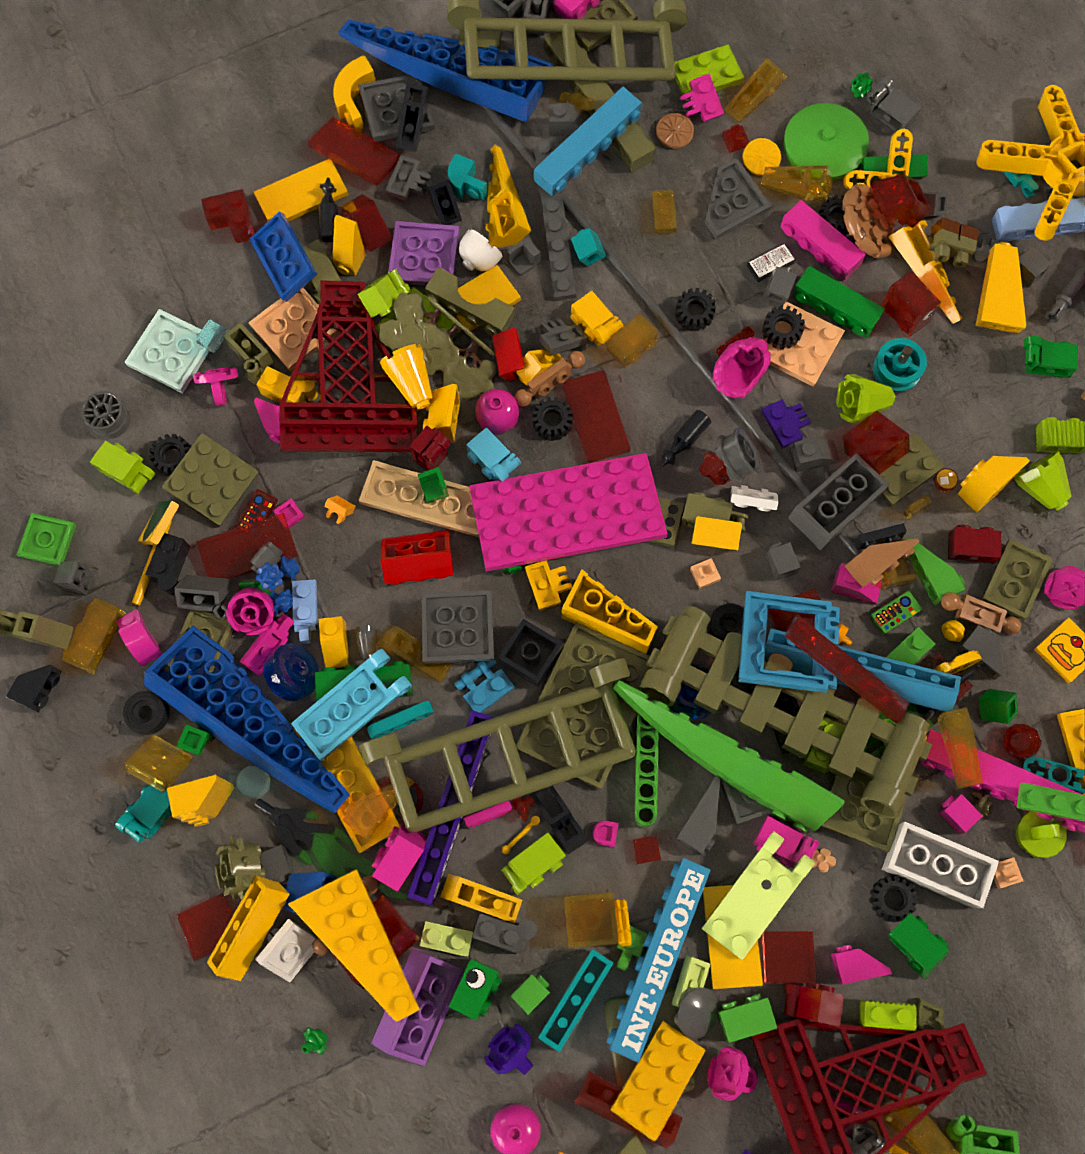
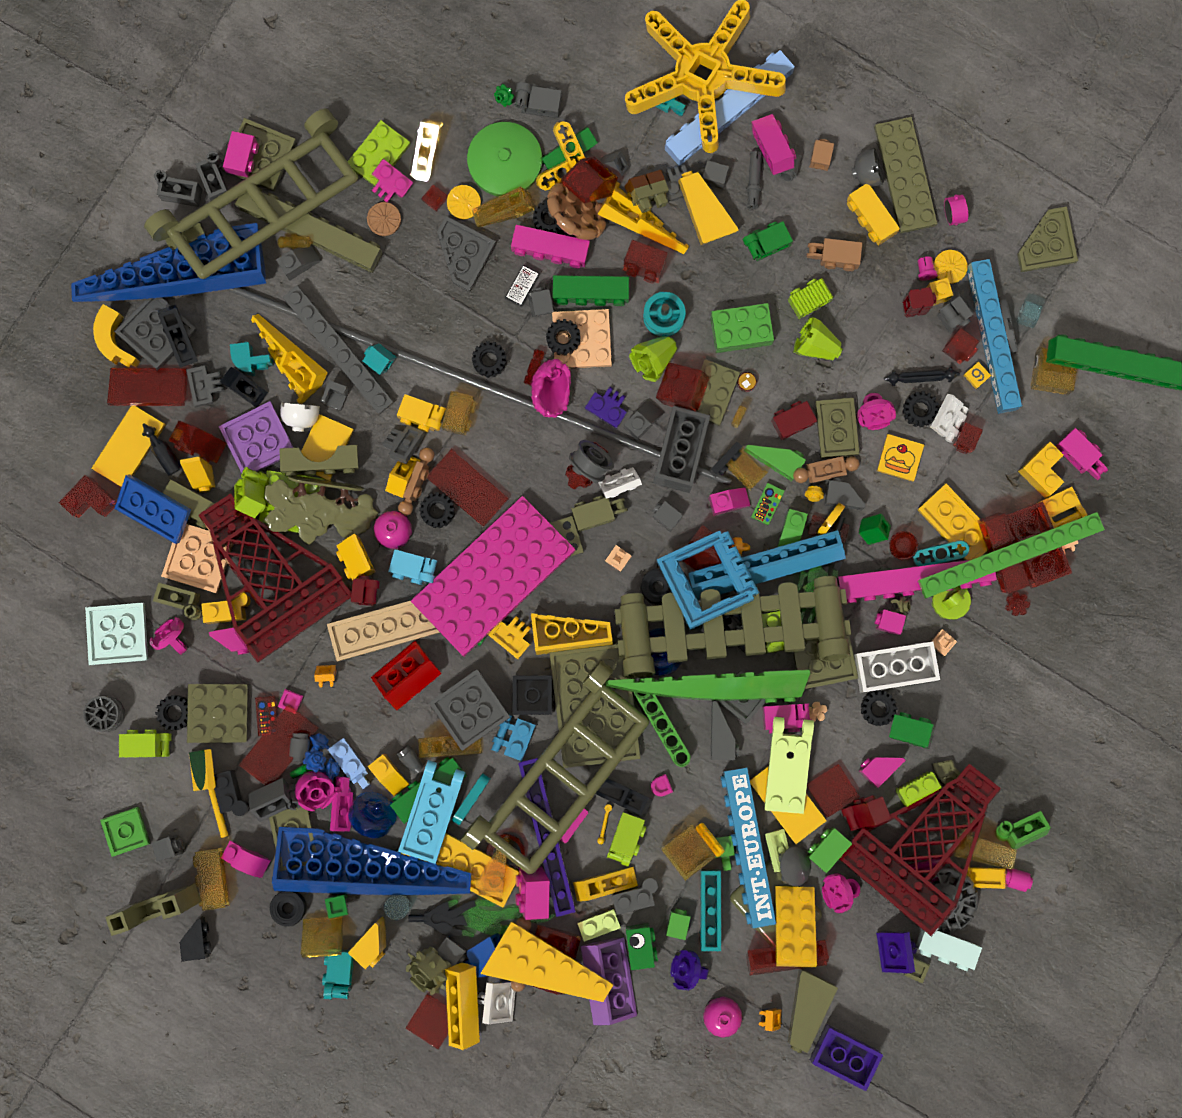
camera: 35 degrees left, 10 degrees up
(211, 336) = (143, 605): clear light blue piece -> none
(315, 1041) = (554, 1047): green plant -> none
(409, 375) = (315, 547): yellow cone -> none
(433, 485) = (384, 617): green panel -> none
(508, 353) = (373, 481): red panel -> none
(521, 806) = (593, 805): clear red plant -> none
(587, 141) = (326, 276): dark azure brick -> none
(646, 850) = (696, 779): clear red tile -> none
(664, 211) = (417, 293): clear yellow plate -> none
(686, 436) = (543, 463): black wheel -> none
(716, 533) = (609, 526): yellow panel -> none
(847, 669) = (758, 575): clear red tile -> none
(877, 558) = (732, 481): medium nougat slope -> none
(961, 747) = (865, 579): clear yellow slope -> none
(972, 423) = (742, 328): none -> bright green brick
(989, 479) = (777, 371): yellow slope -> none

